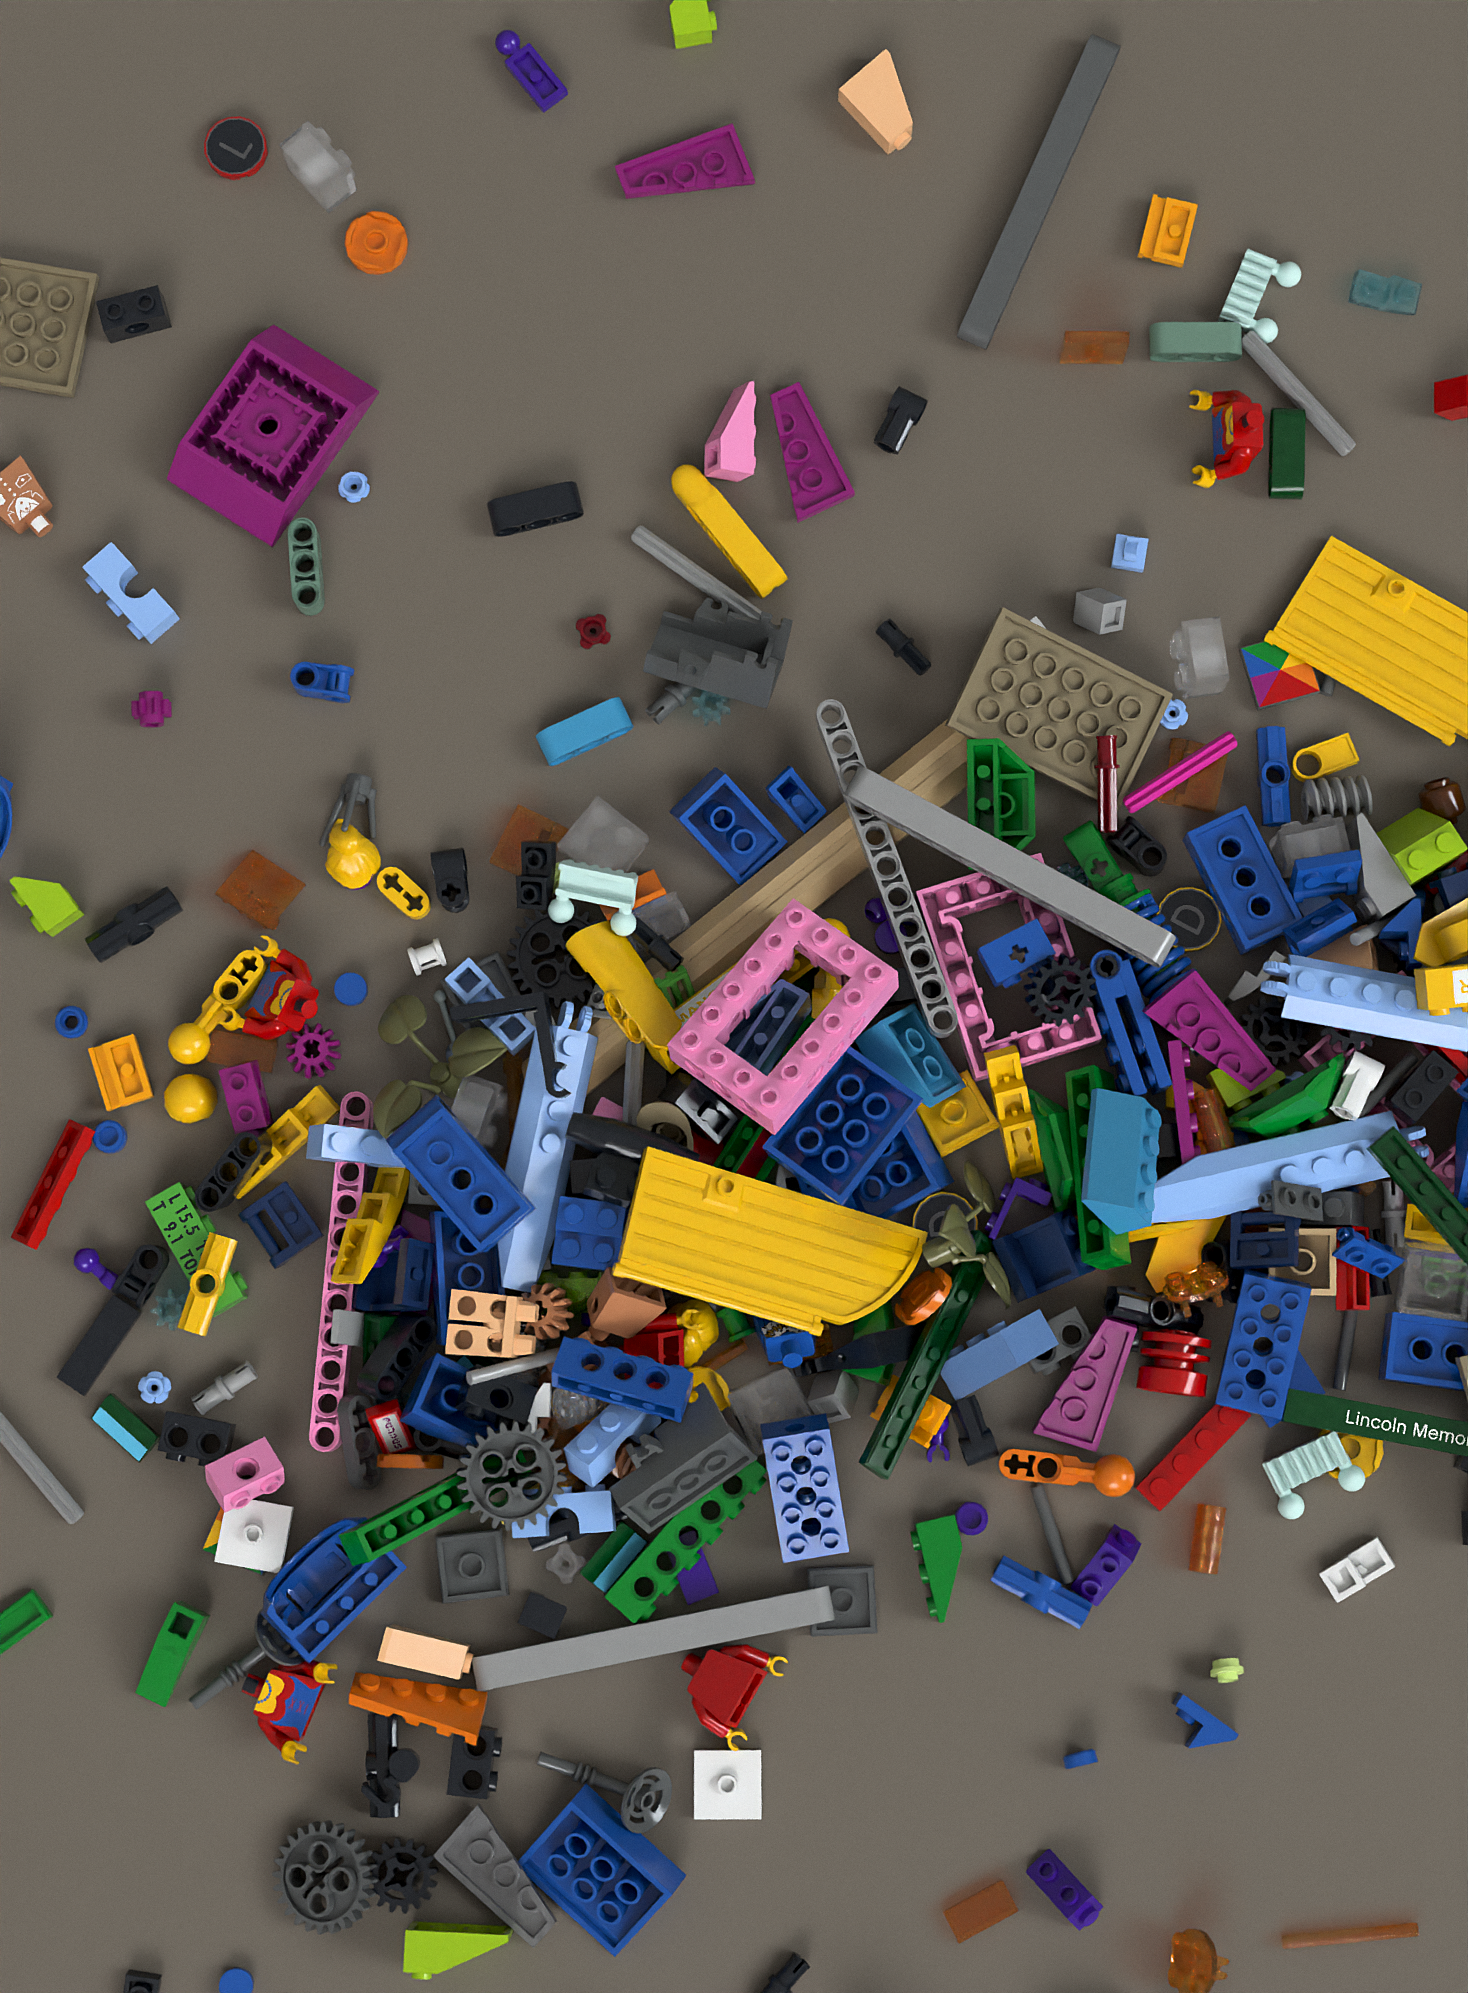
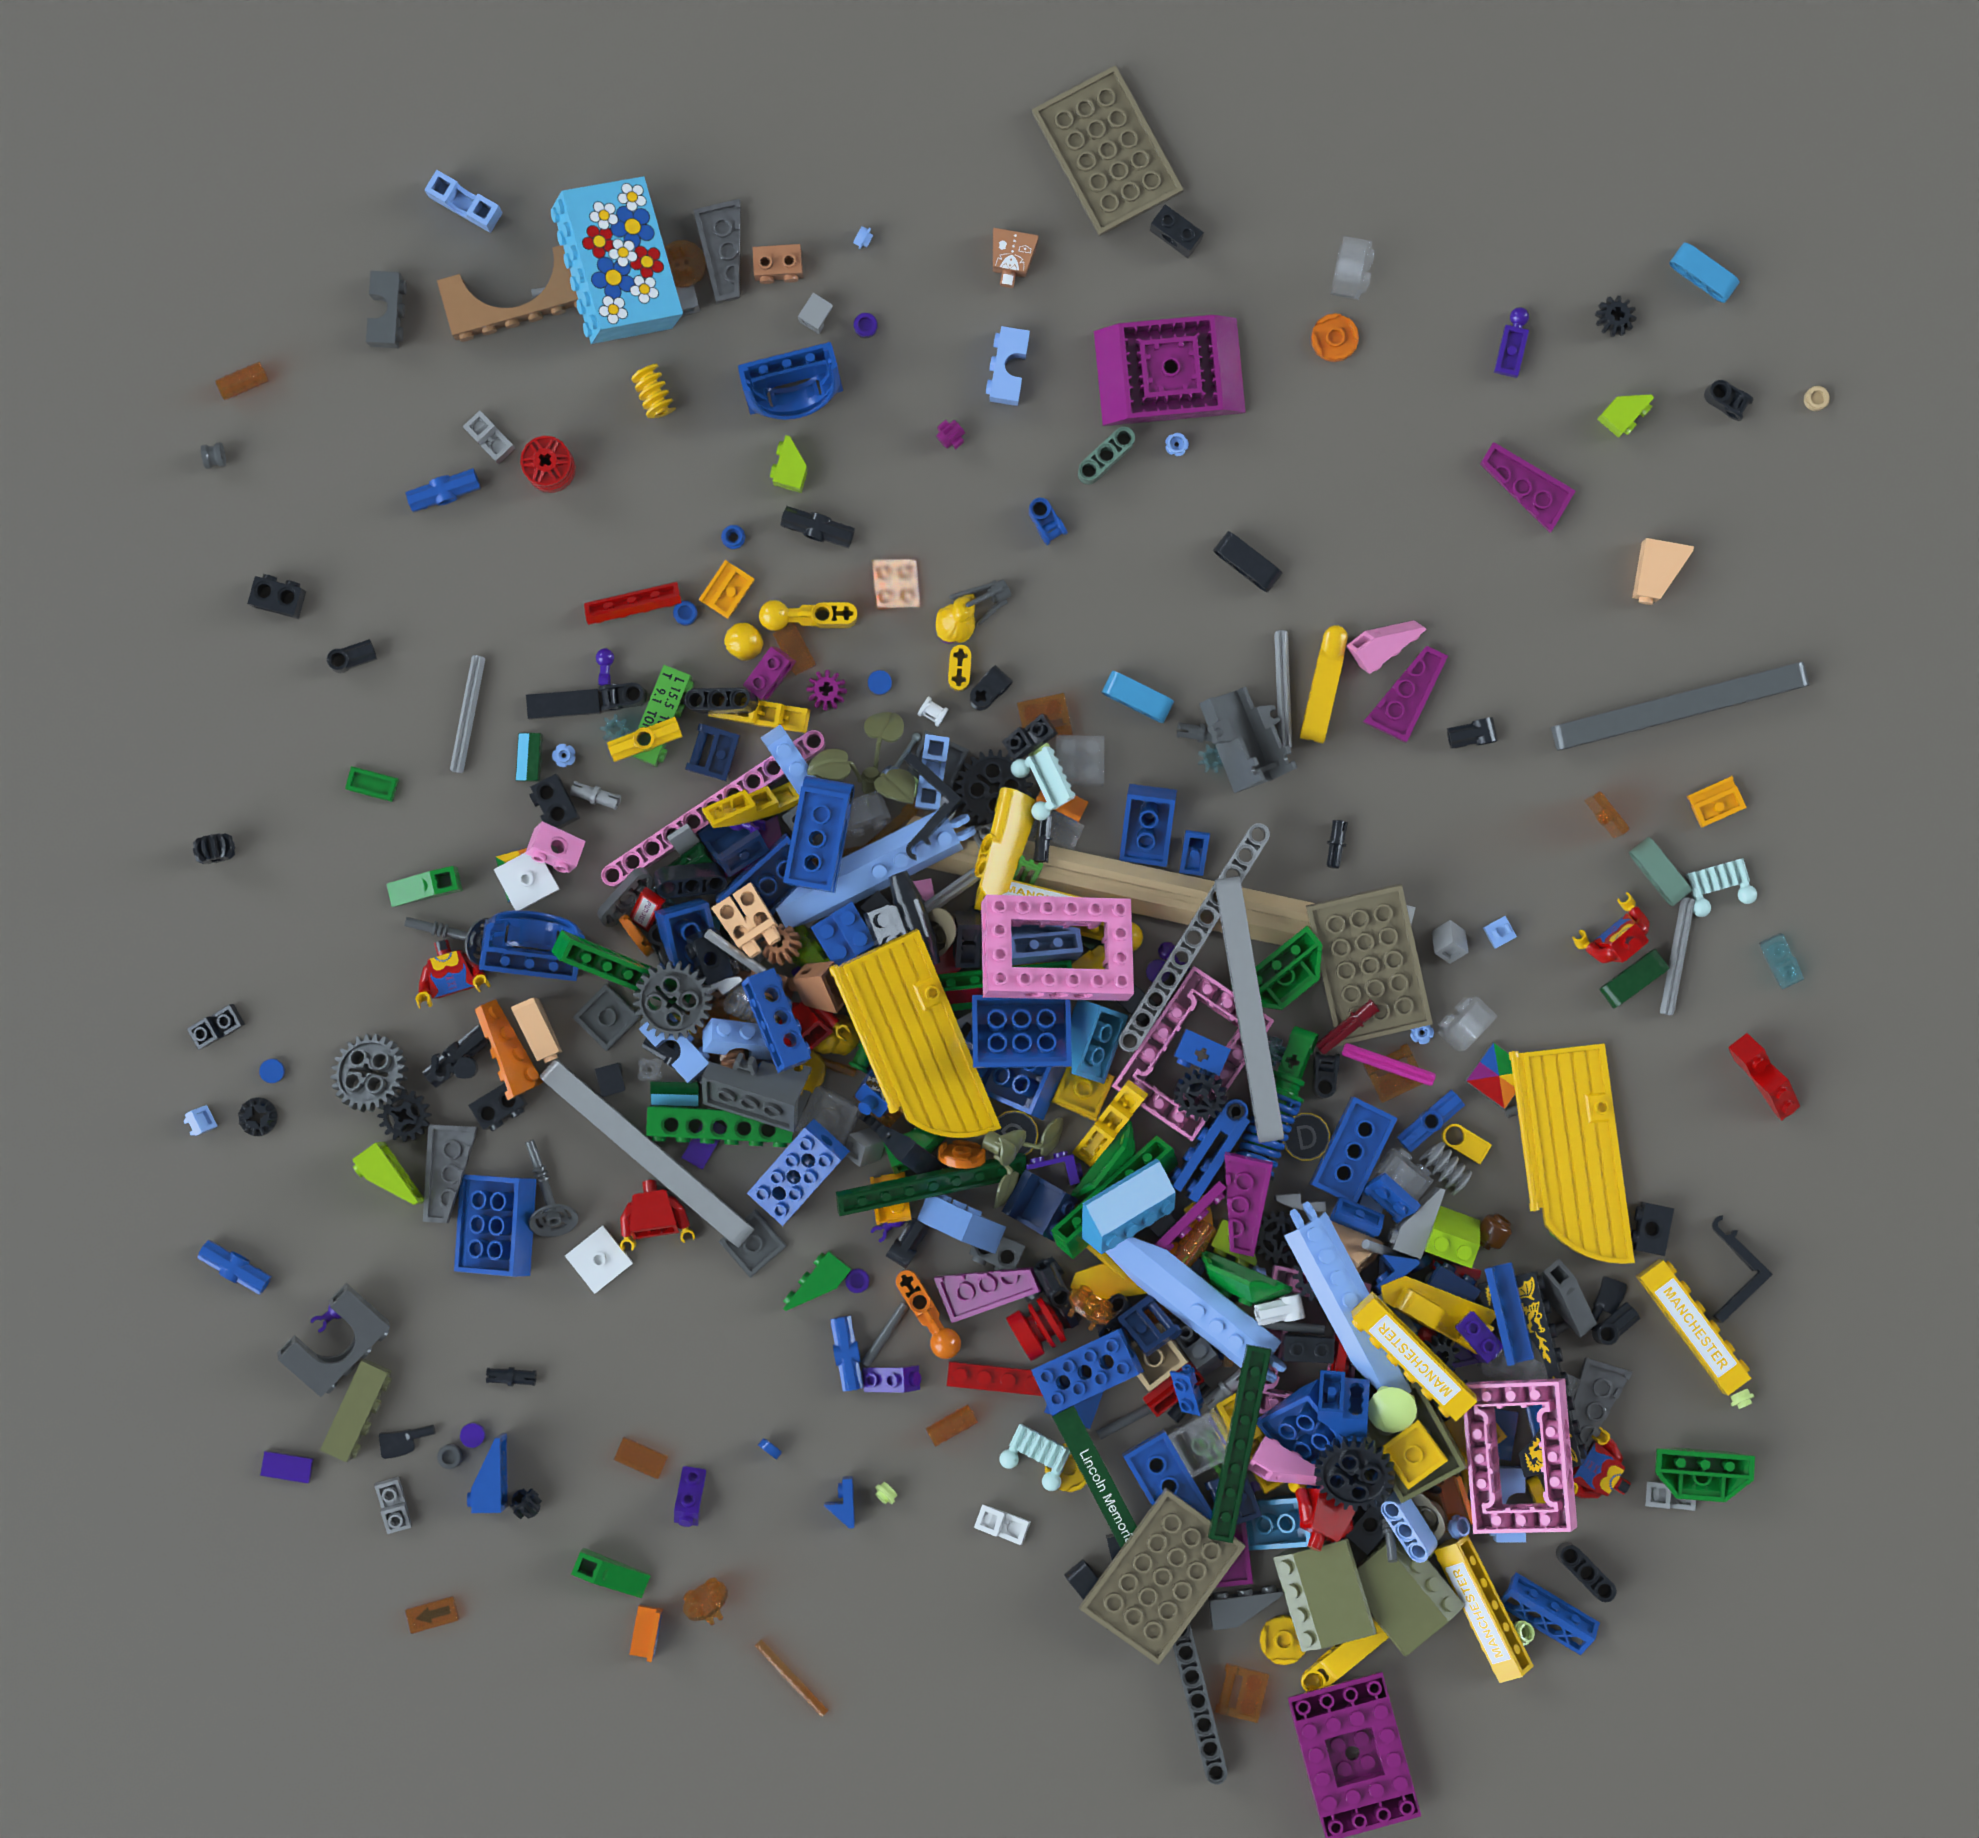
camera: 45 degrees right, 5 degrees up
(235, 148) = (1326, 207): black tile -> none
(281, 999) = (841, 648): red torso -> none
(593, 622) = (1202, 661): dark red plate -> none
(1293, 1200) = (1183, 1325): dark grey hinge -> none

